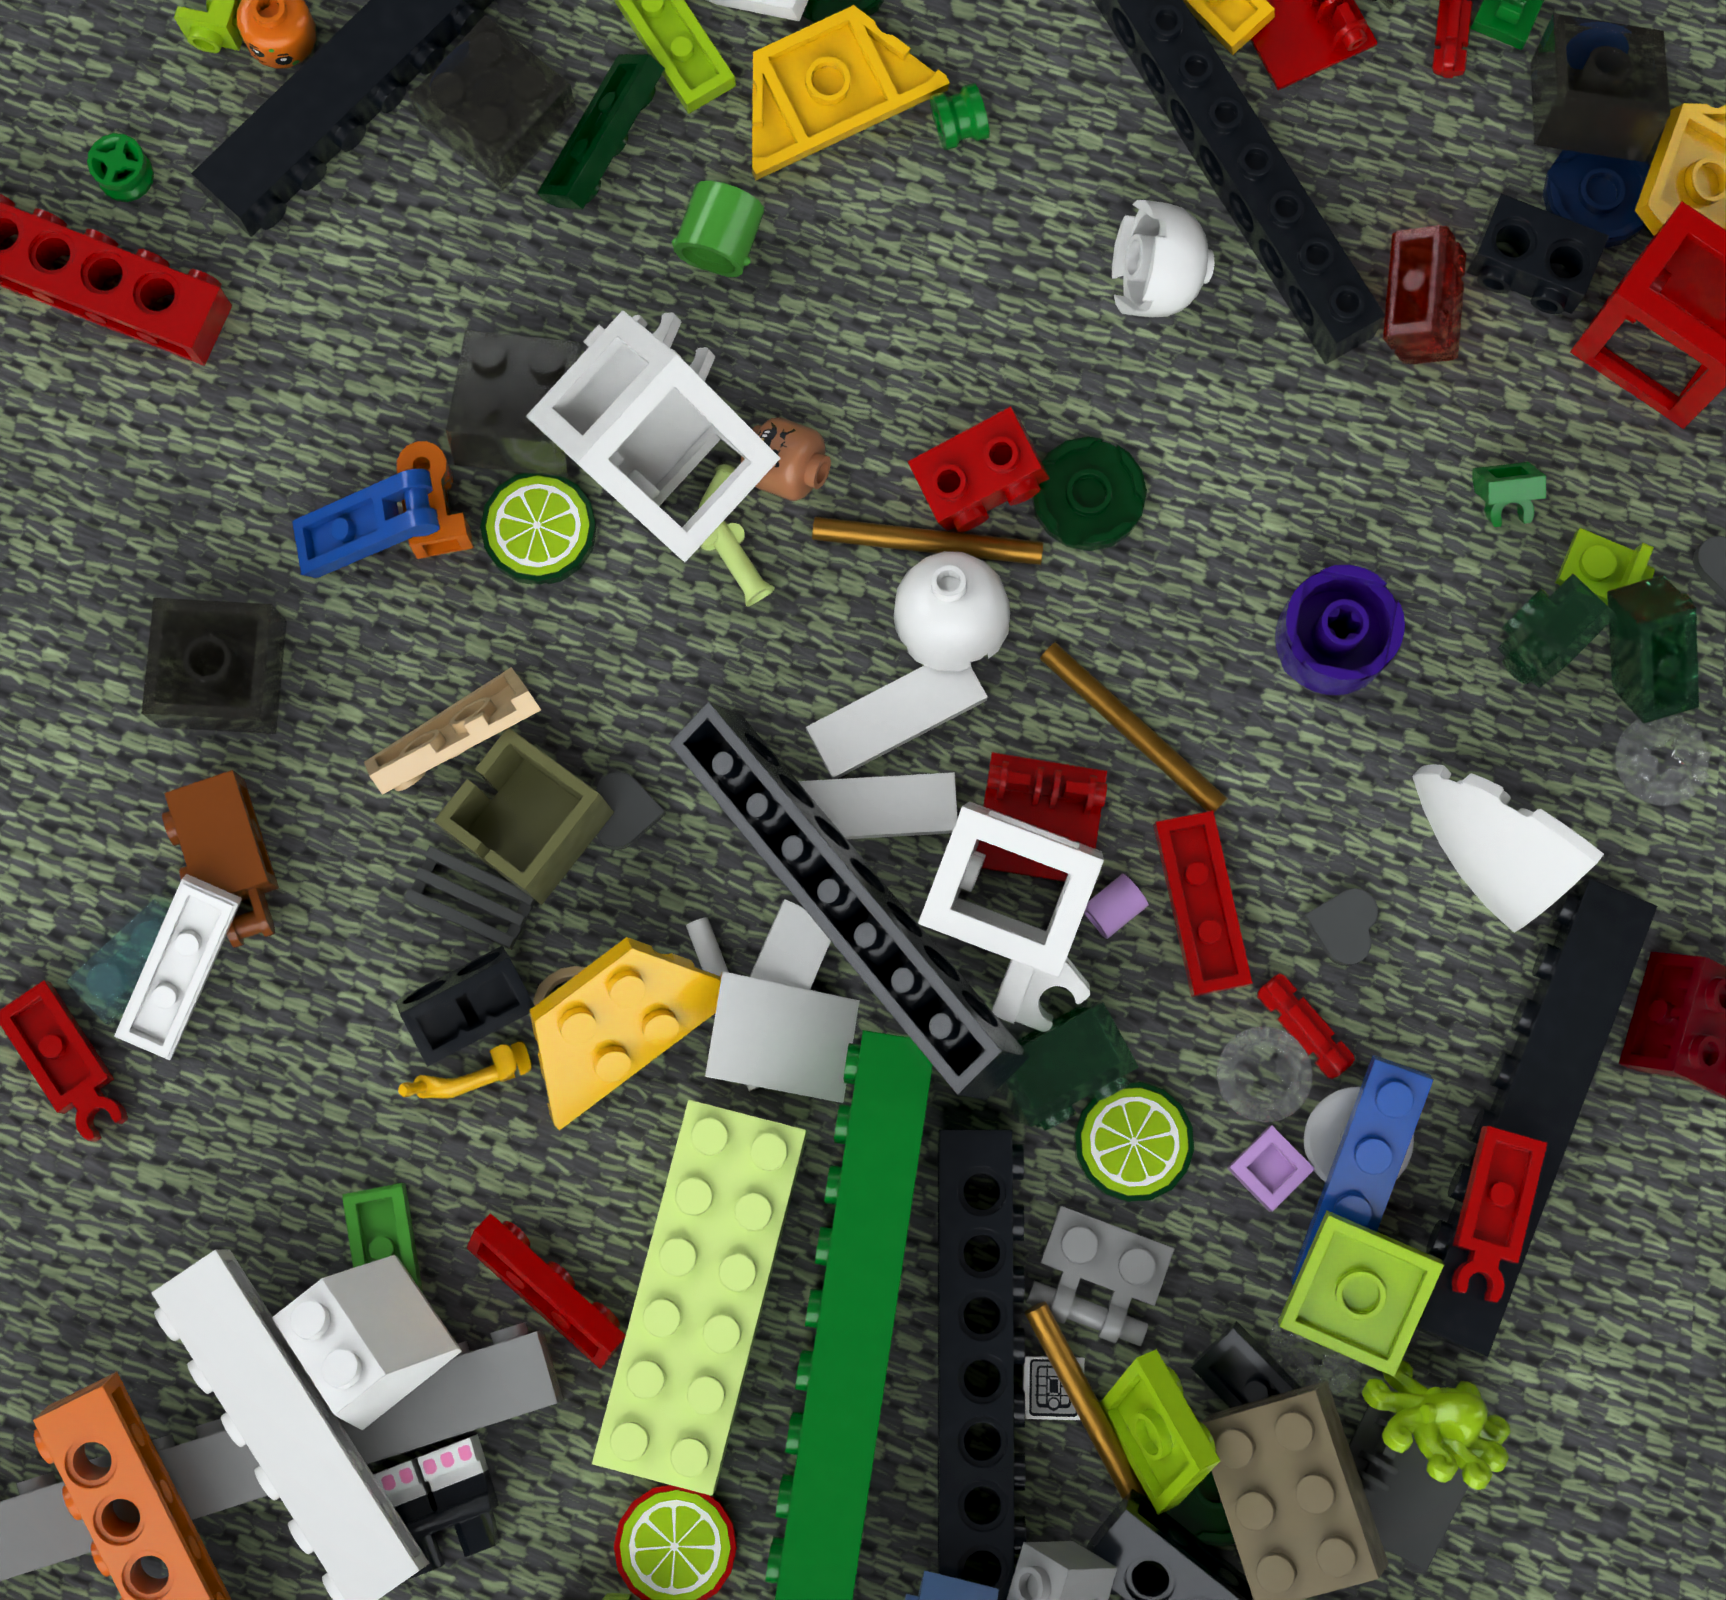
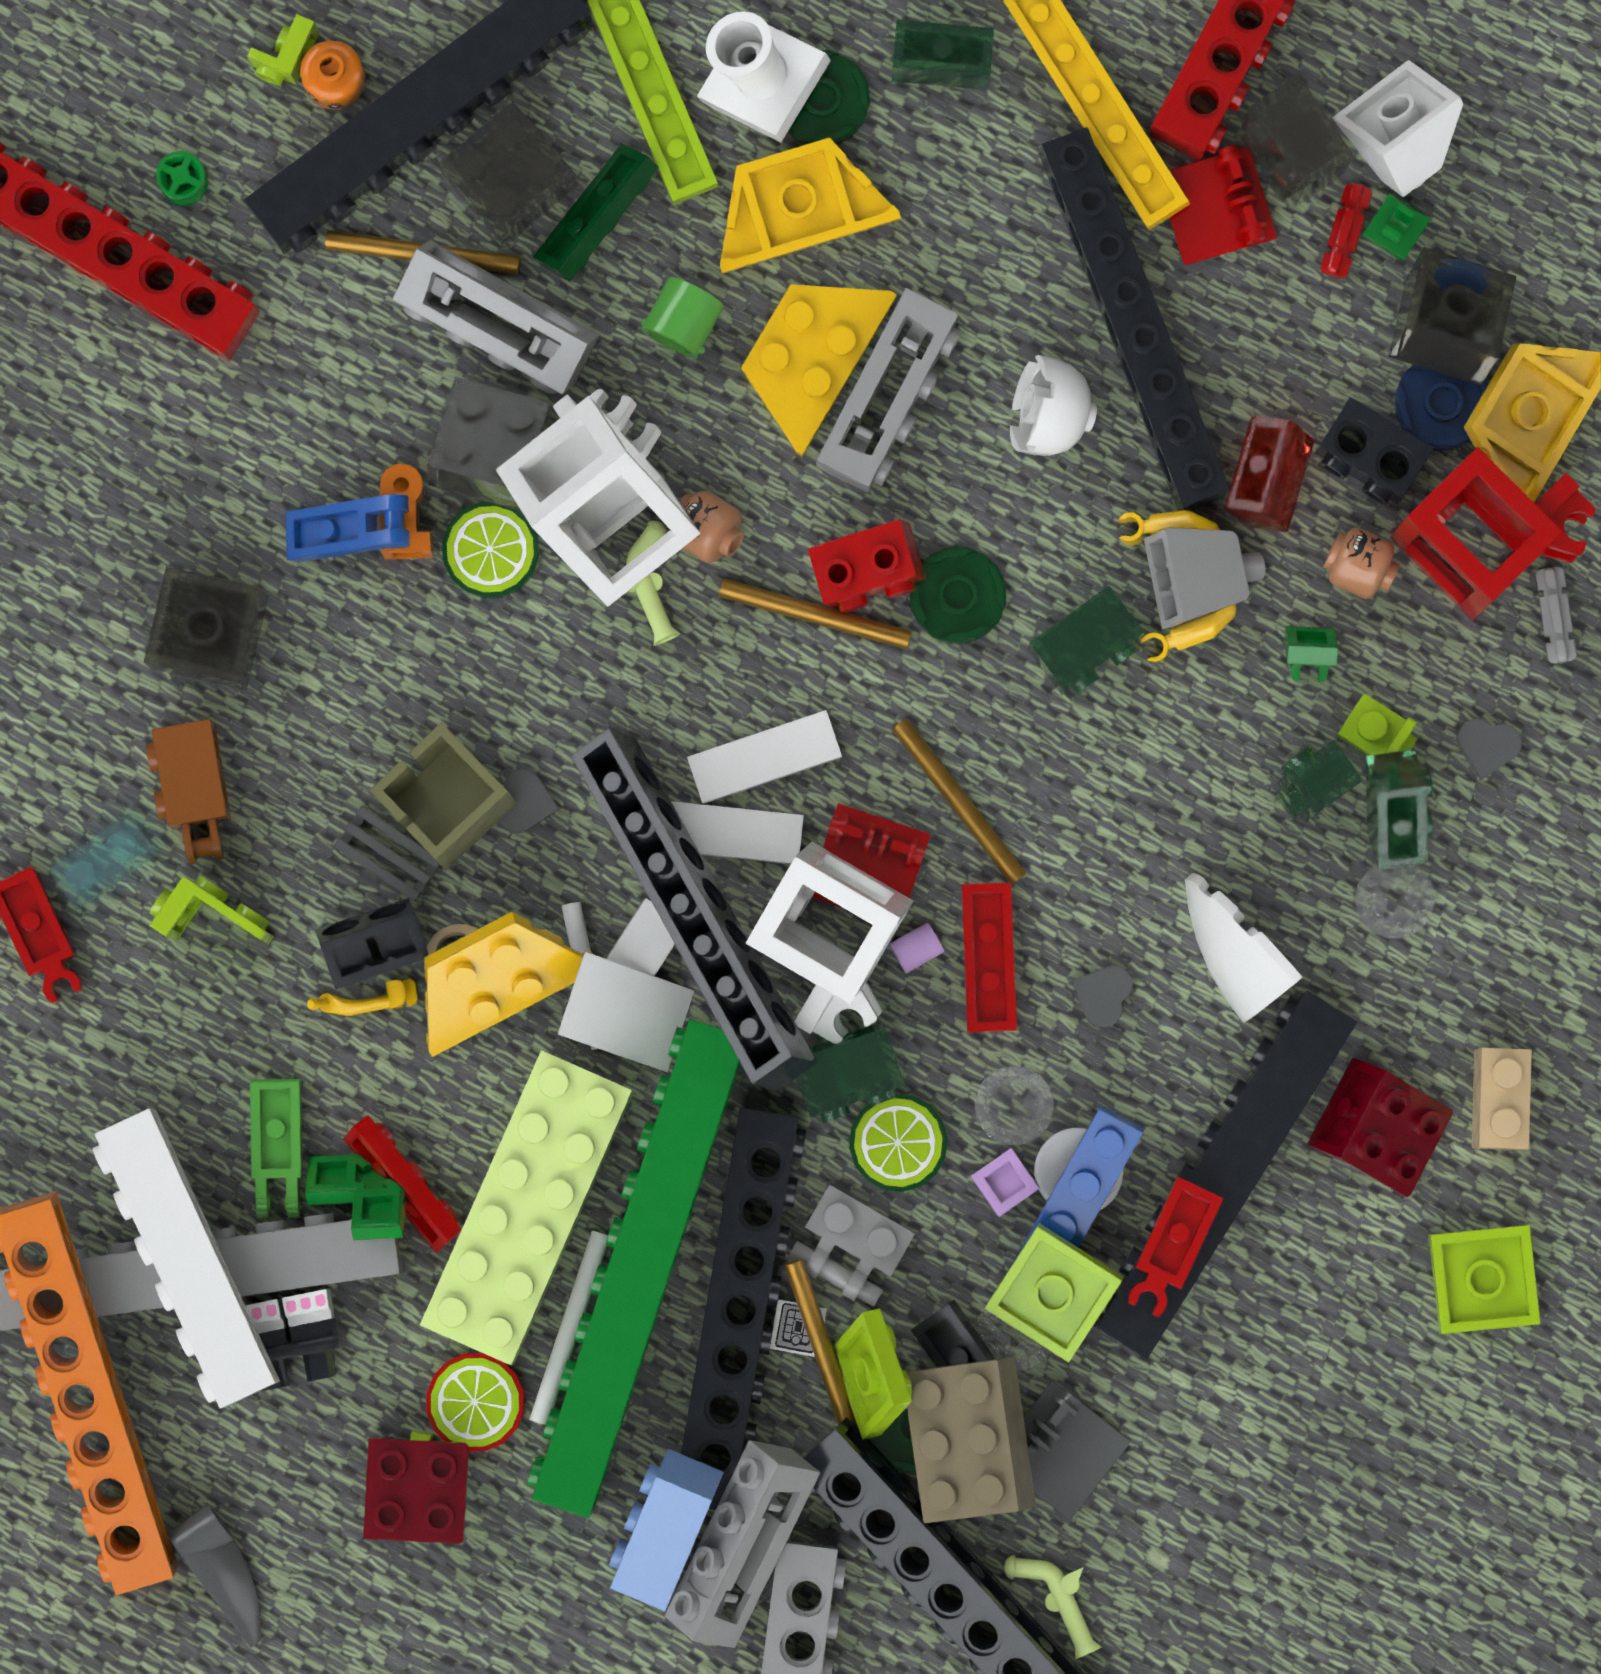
camera: 10 degrees right, 5 degrees up
(178, 966) = (143, 874): white tile -> none
(226, 997) = (177, 908): none -> lime bracket
(366, 1338) = (257, 1197): white slope -> none
(409, 209) = (405, 251): none -> pearl gold bar
(415, 234) = (440, 276): none -> light grey brick
(453, 731) = (396, 714): tan wing -> none
(515, 1316) = (349, 1178): none -> green tile
(775, 1435) = (565, 1341): none -> white bar
(873, 250) = (811, 353): none -> yellow wing
(951, 611) = (823, 680): white cylinder -> none
(960, 116) = (904, 248): green wheel -> none
(998, 190) = (925, 320): none -> light grey brick
(1250, 517) = (1086, 642): none -> clear green brick
(1306, 1026) = (1055, 1071): red axle -> none
(1360, 421) = (1194, 575): none -> light grey torso
(1366, 616) = (1167, 738): dark purple brick -> none
(1443, 1424) = (1099, 1406): lime animal -> none
(1548, 380) = (1361, 563): none -> nougat head

